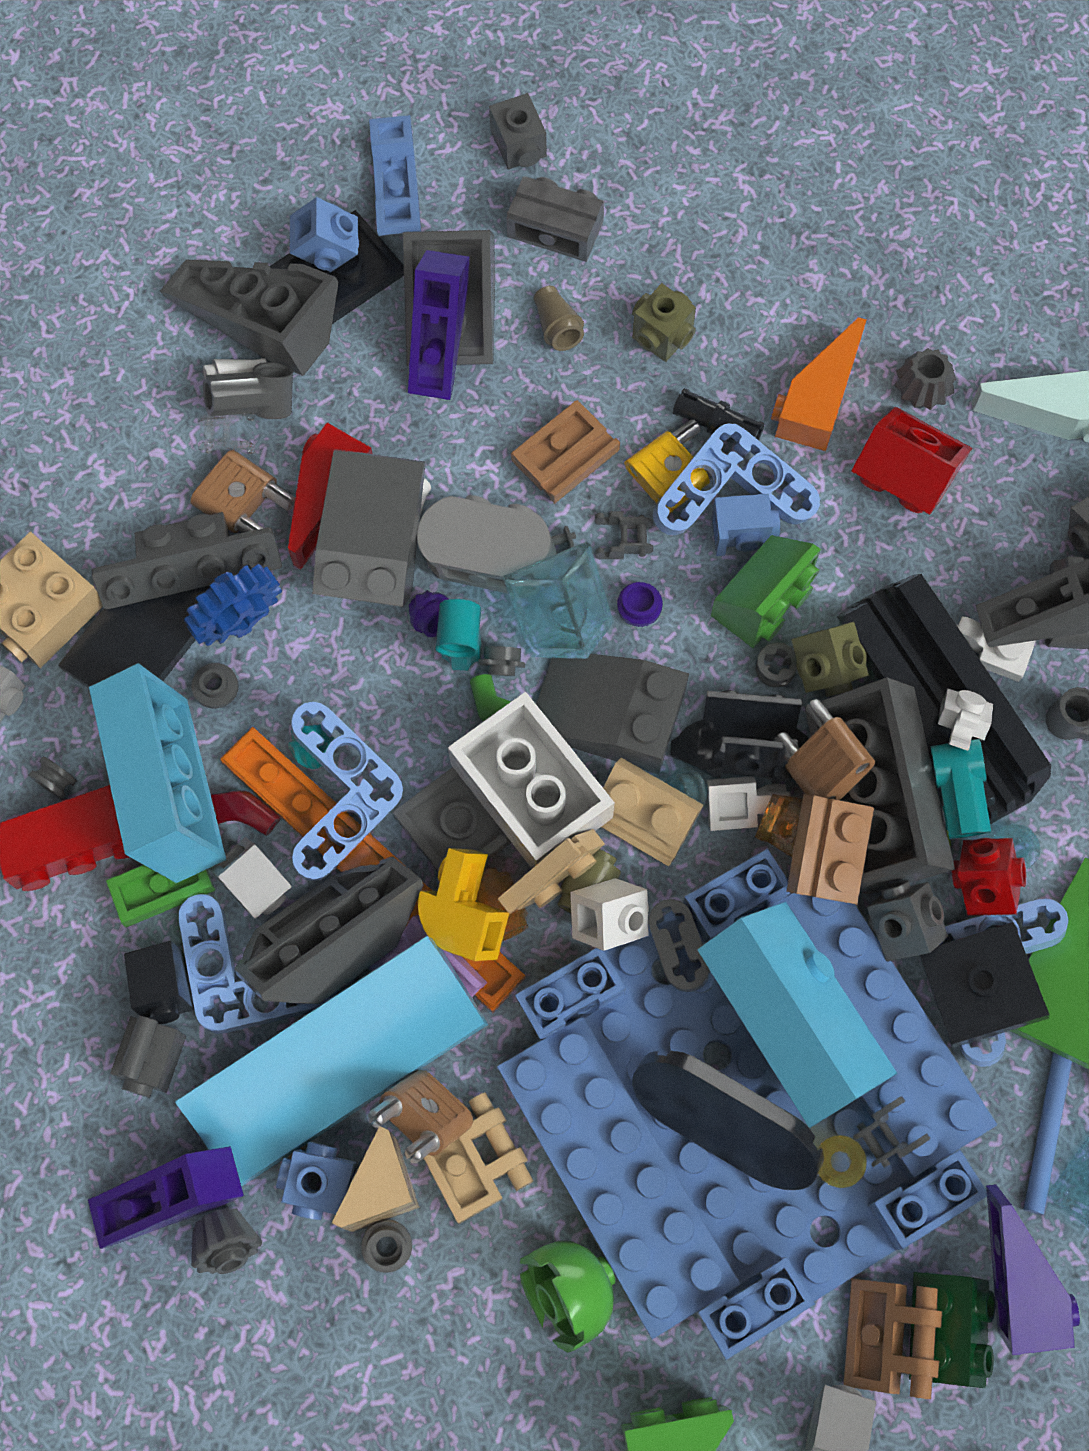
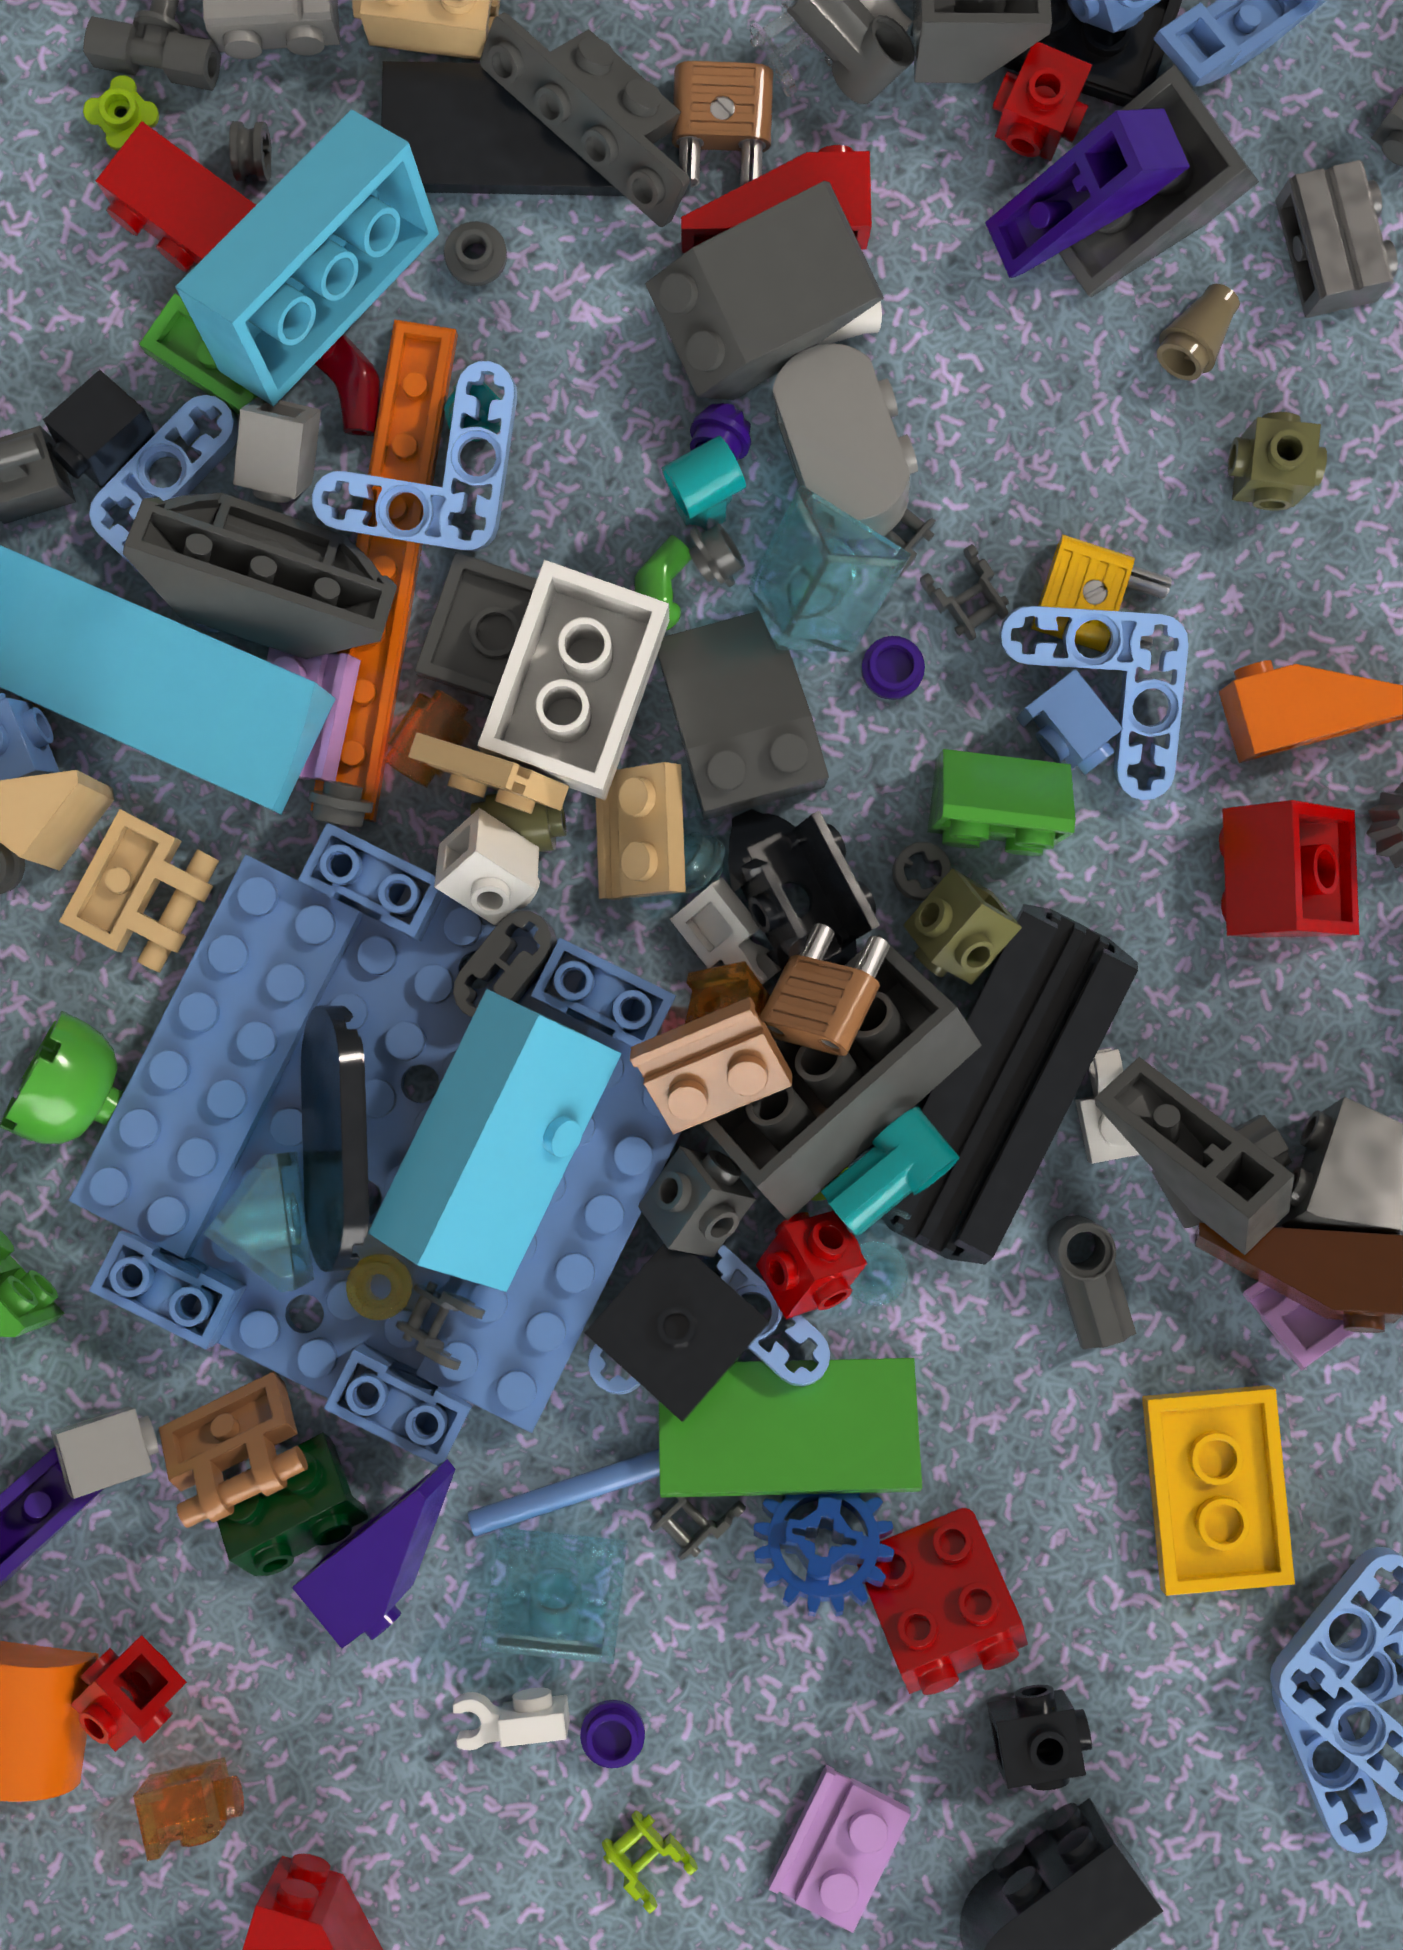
camera: 50 degrees right, 15 degrees up
(232, 605) = (570, 202): blue gear -> none
(366, 317) = (1042, 102): none -> red brick
(423, 1113) = (134, 808): medium nougat piece -> none
(454, 916) = (372, 698): yellow brick -> none
(505, 983) = (340, 804): none -> dark grey plate
(565, 451) = (1029, 456): medium nougat plate -> none
(712, 414) = (1194, 605): black pin -> none
(758, 1197) = (267, 1224): none -> clear light blue slope
(966, 715) = (978, 1126): white plate -> none

